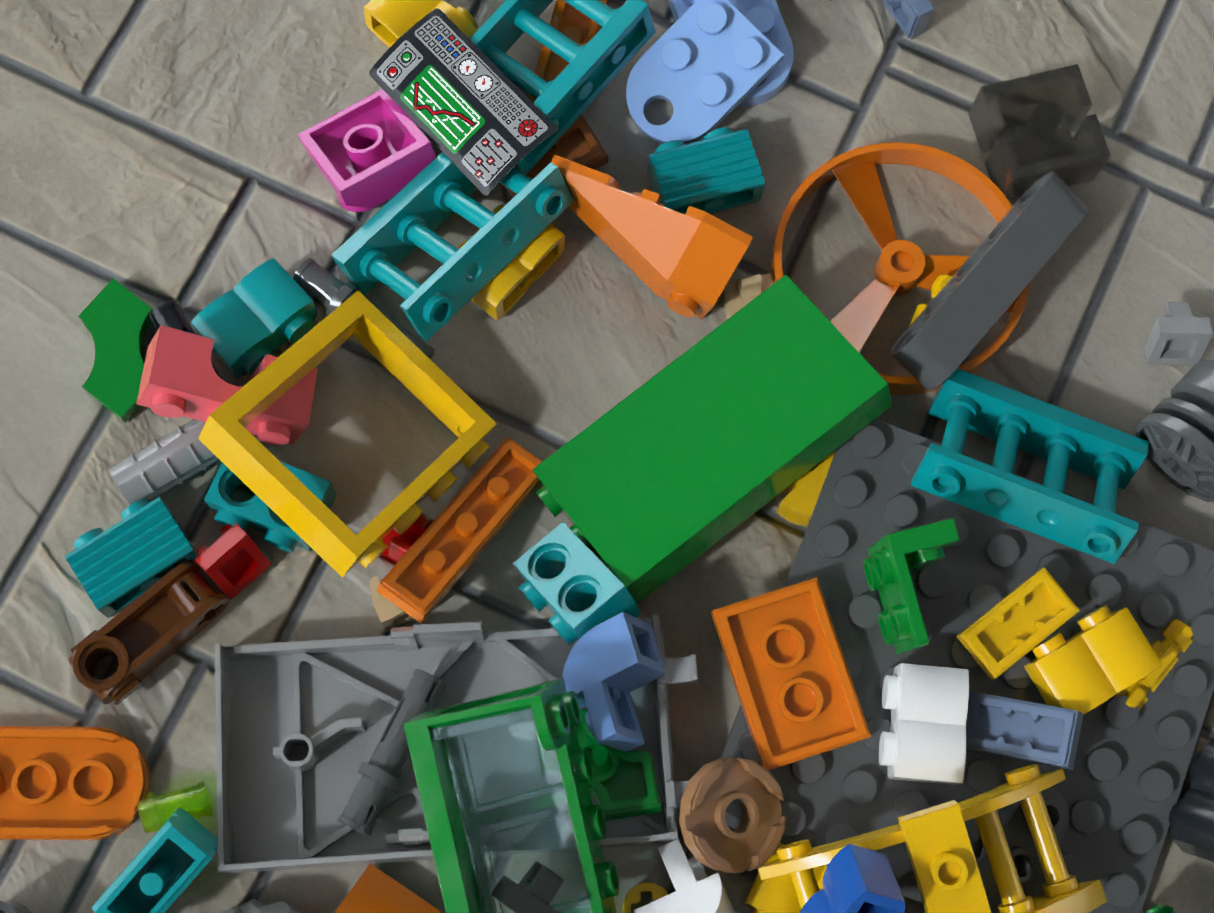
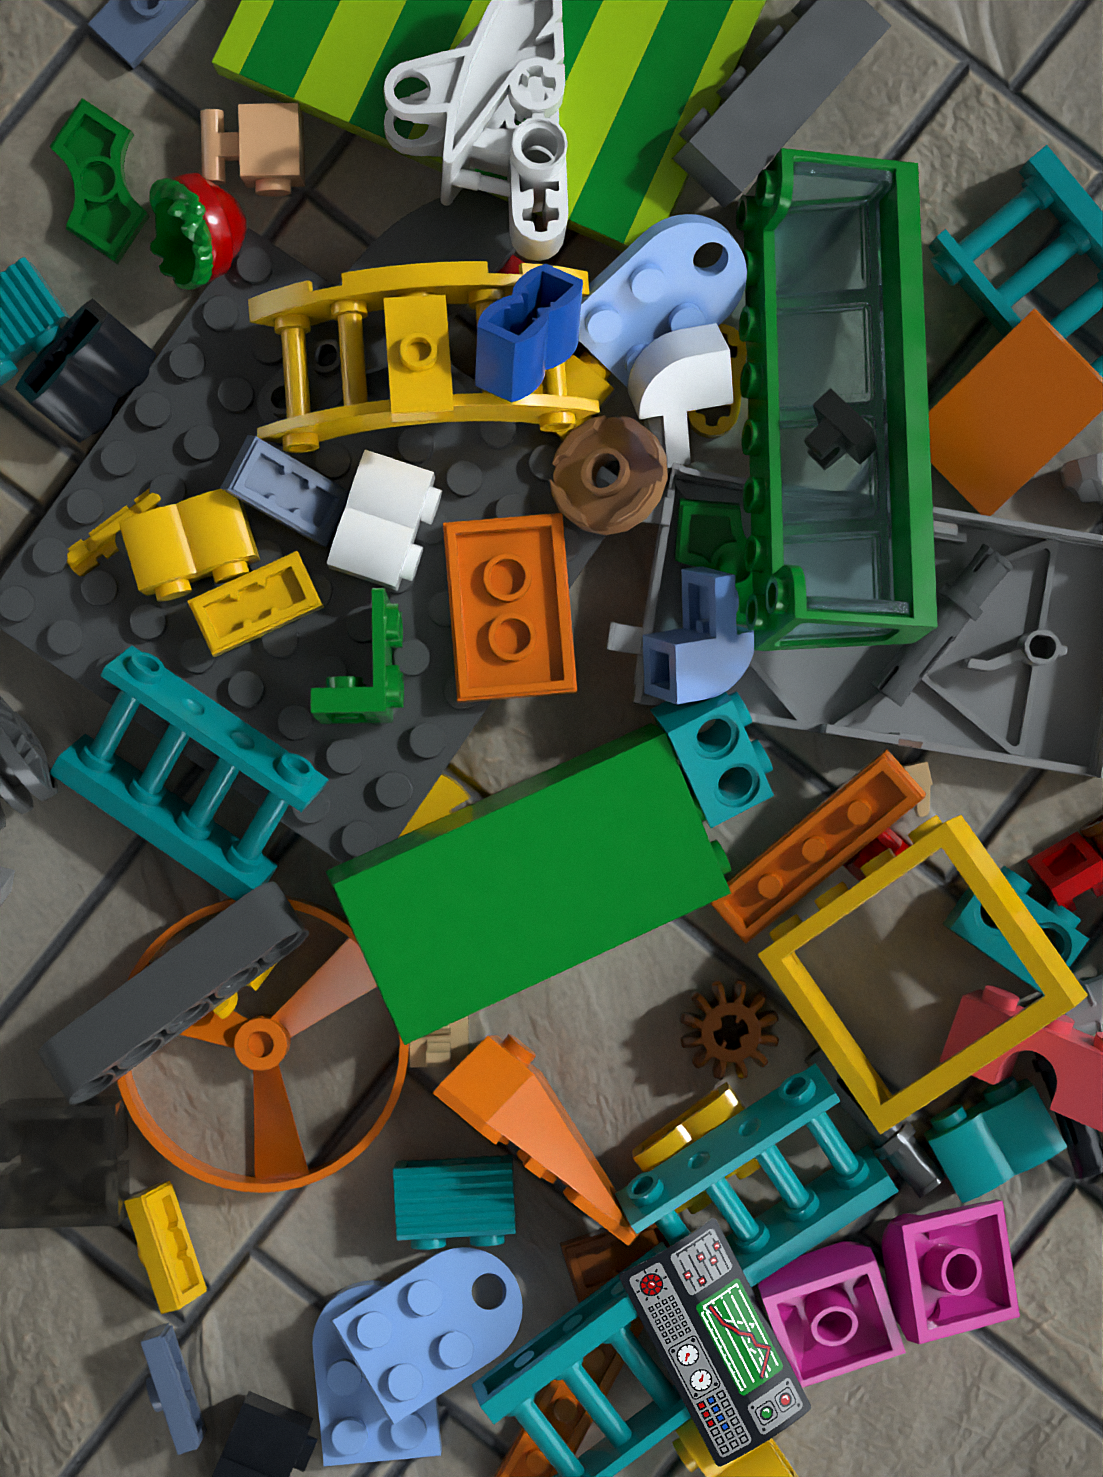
camera: 160 degrees left, 15 degrees up
(273, 204) = (949, 1271): none -> dark pink slope
(501, 341) = (747, 1037): none -> reddish brown gear
(933, 89) = (165, 1247): none -> yellow plate

